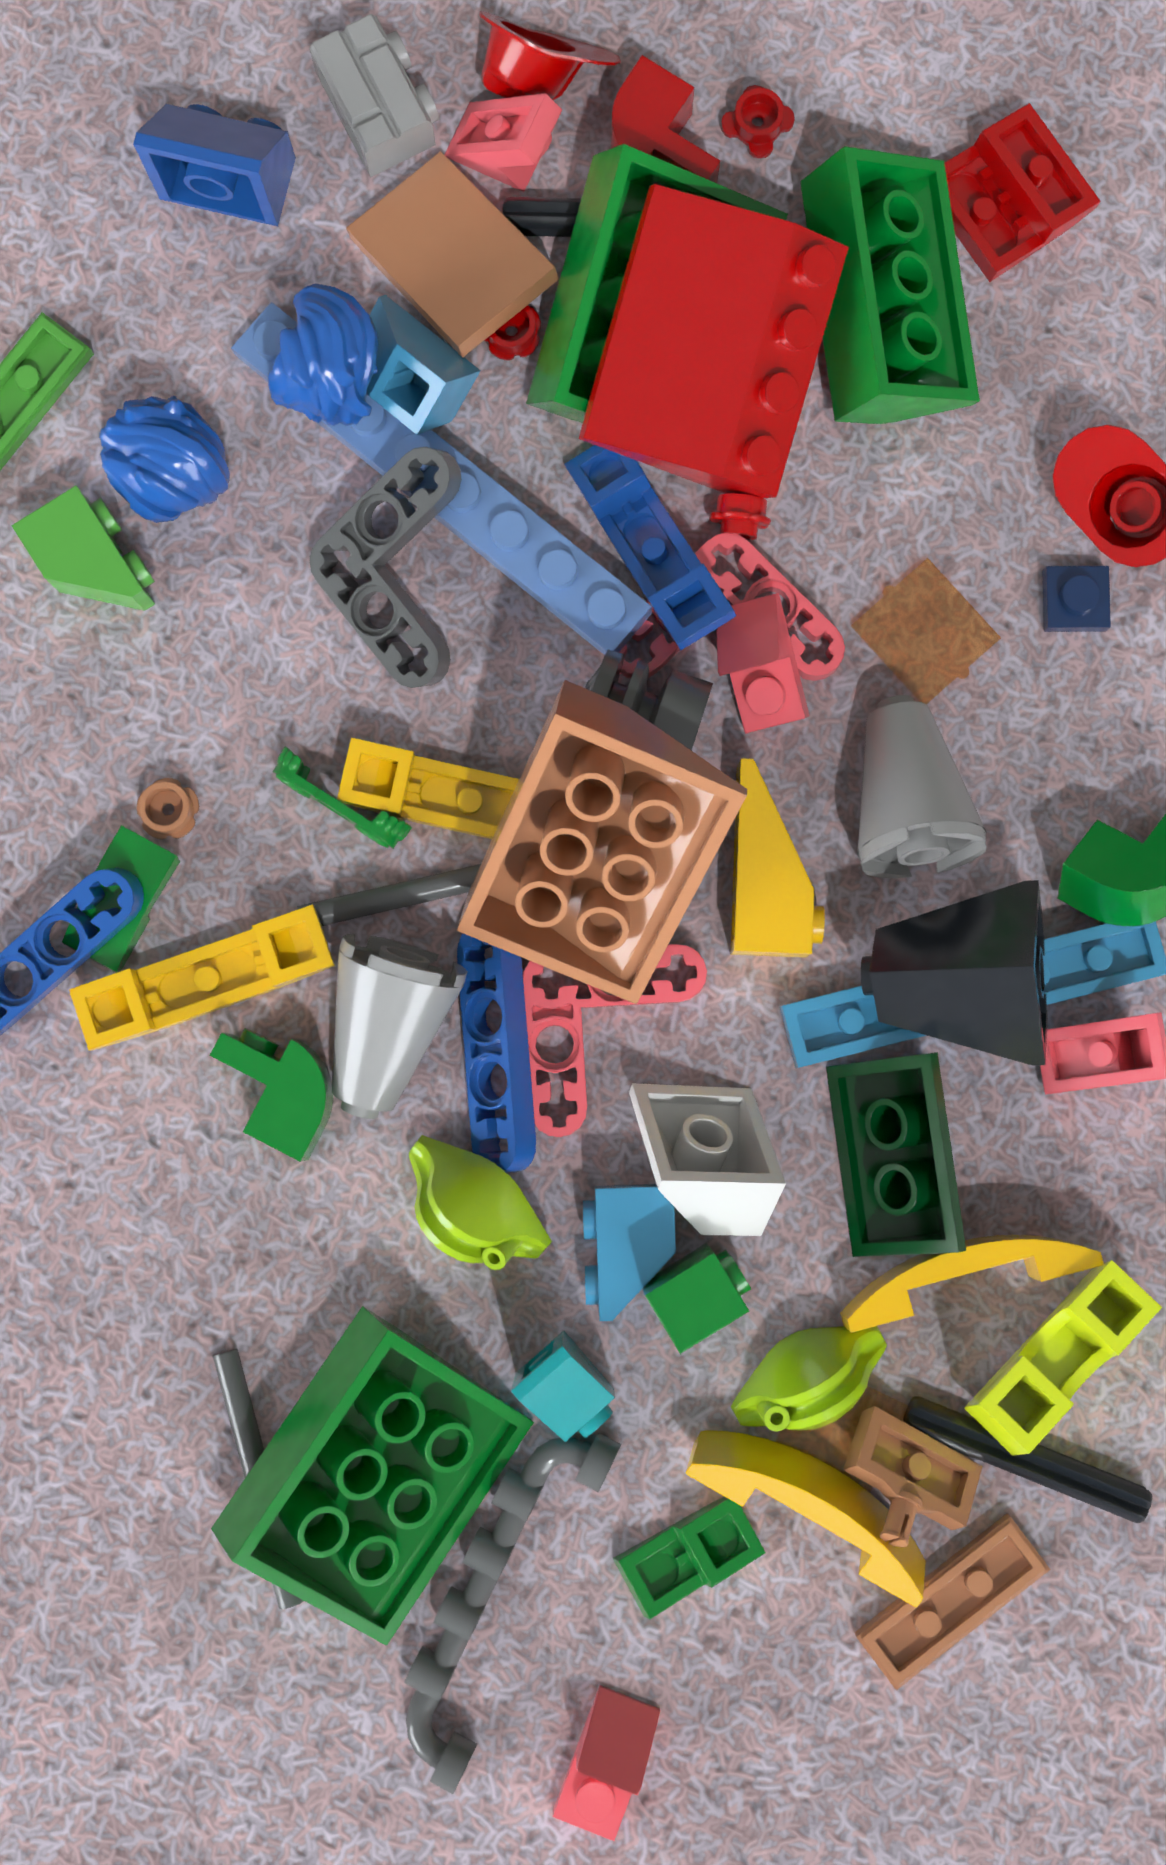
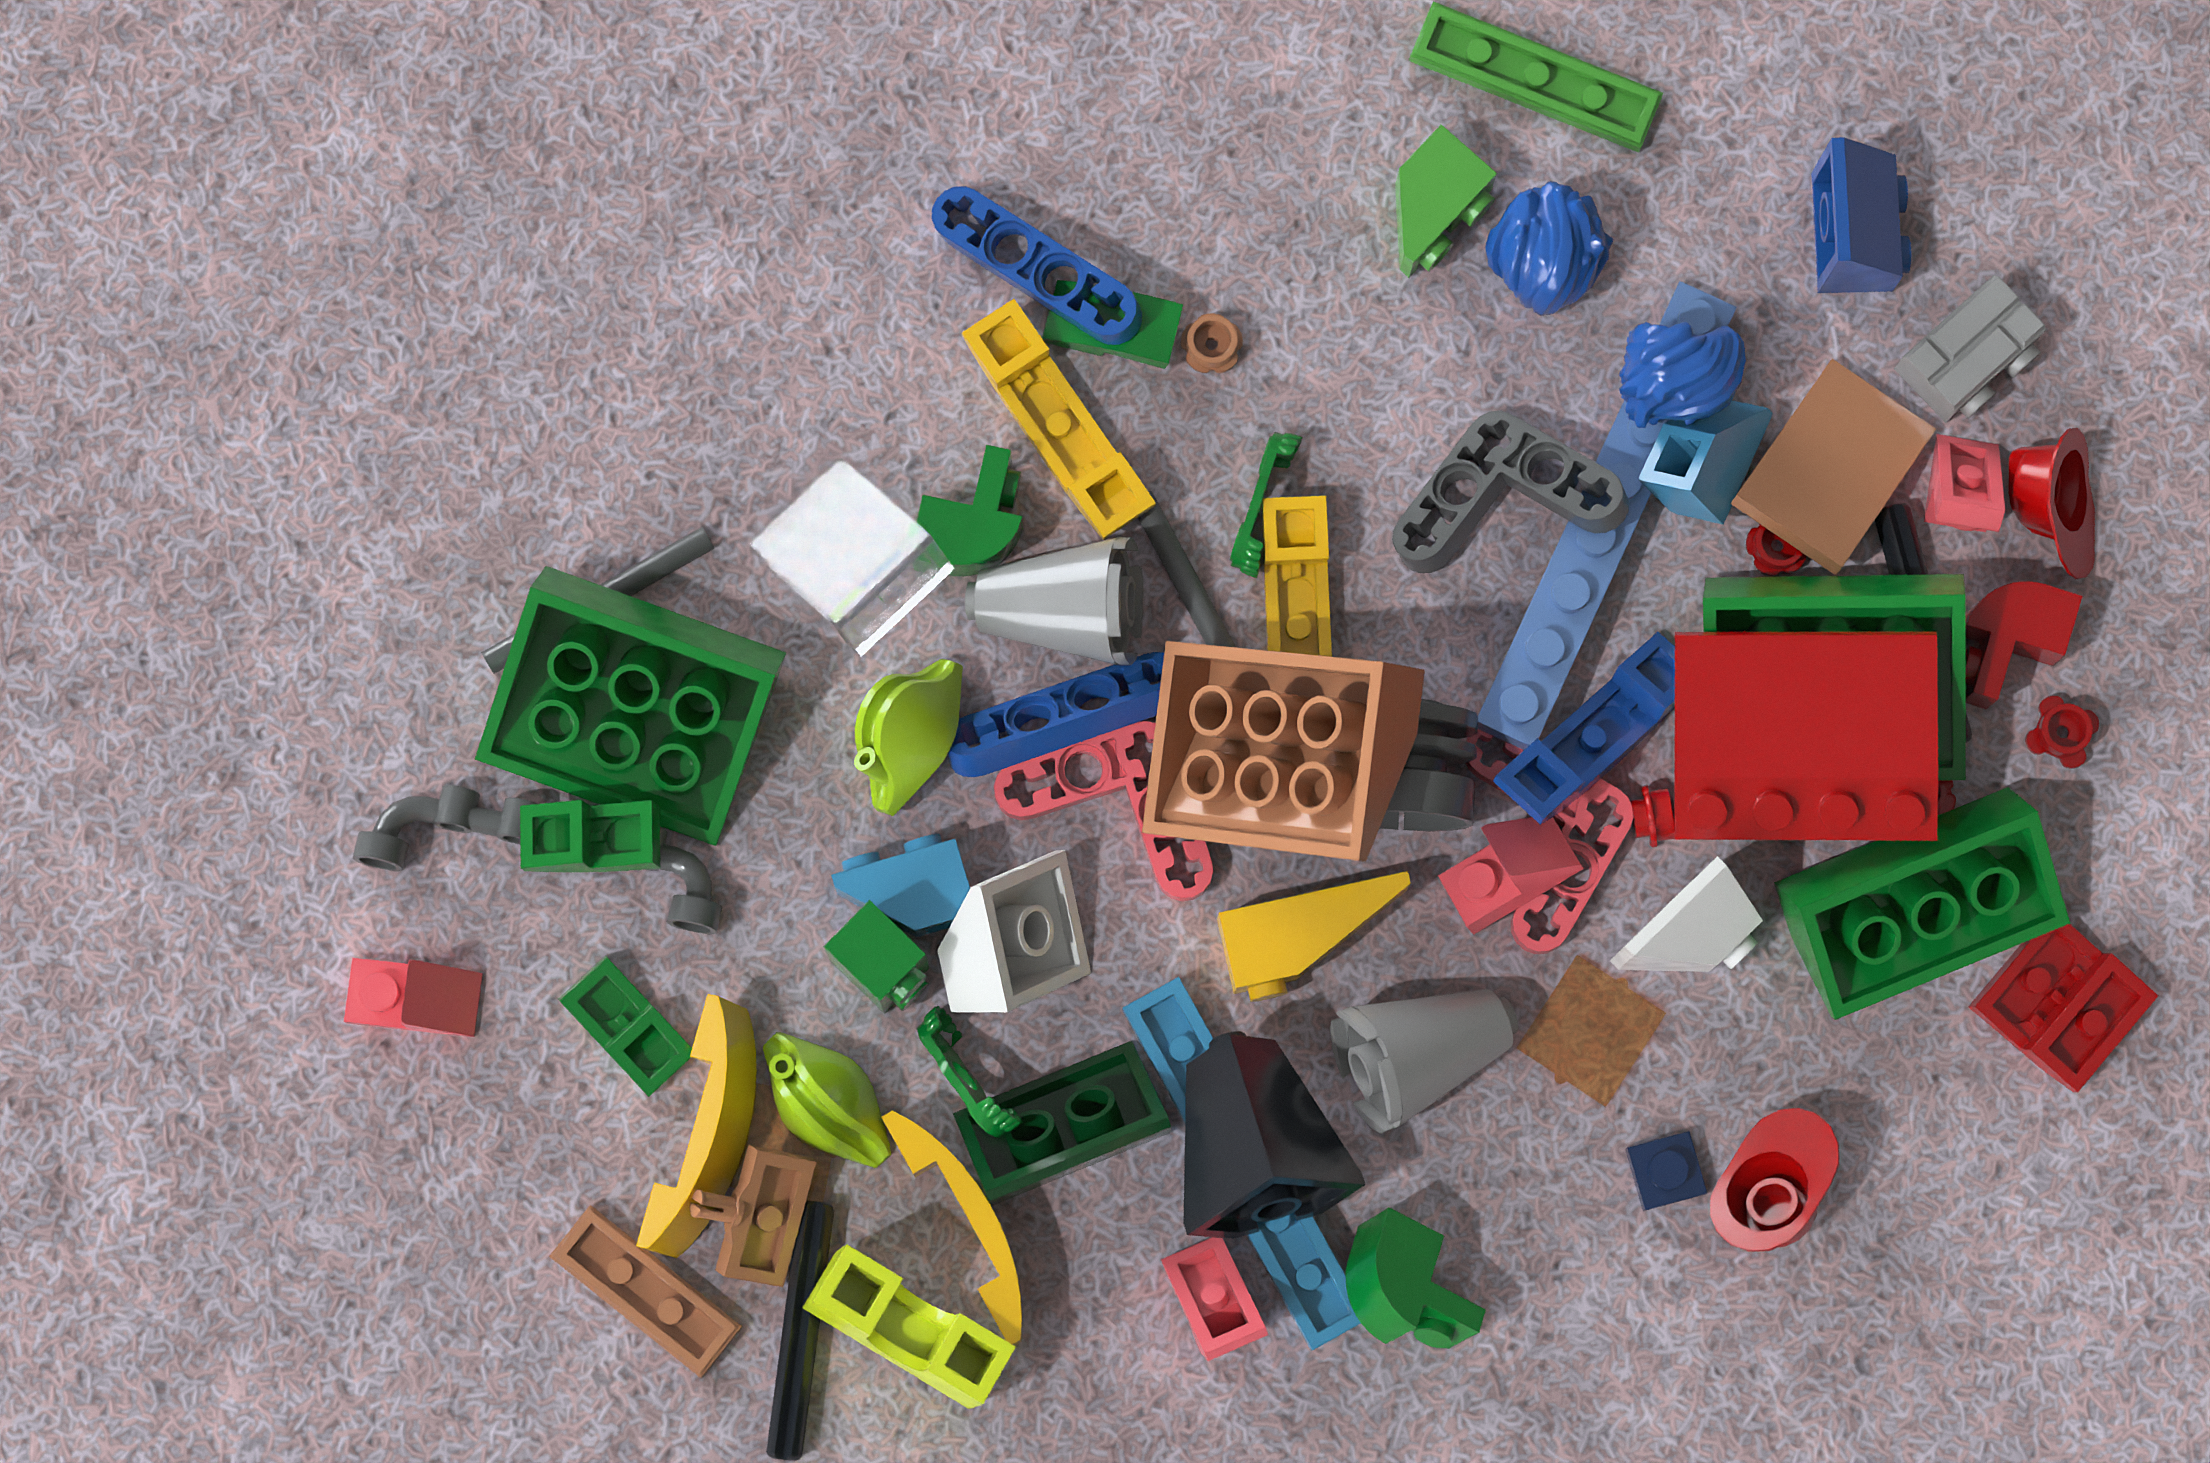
camera: 70 degrees right, 5 degrees down
(286, 1218) = (852, 555): none -> clear panel
(497, 1552) = (590, 838): none -> green slope
(564, 1389) = (758, 860): teal slope -> none
(803, 1250) = (981, 1108): none -> green piece
(859, 504) = (1697, 928): none -> white slope

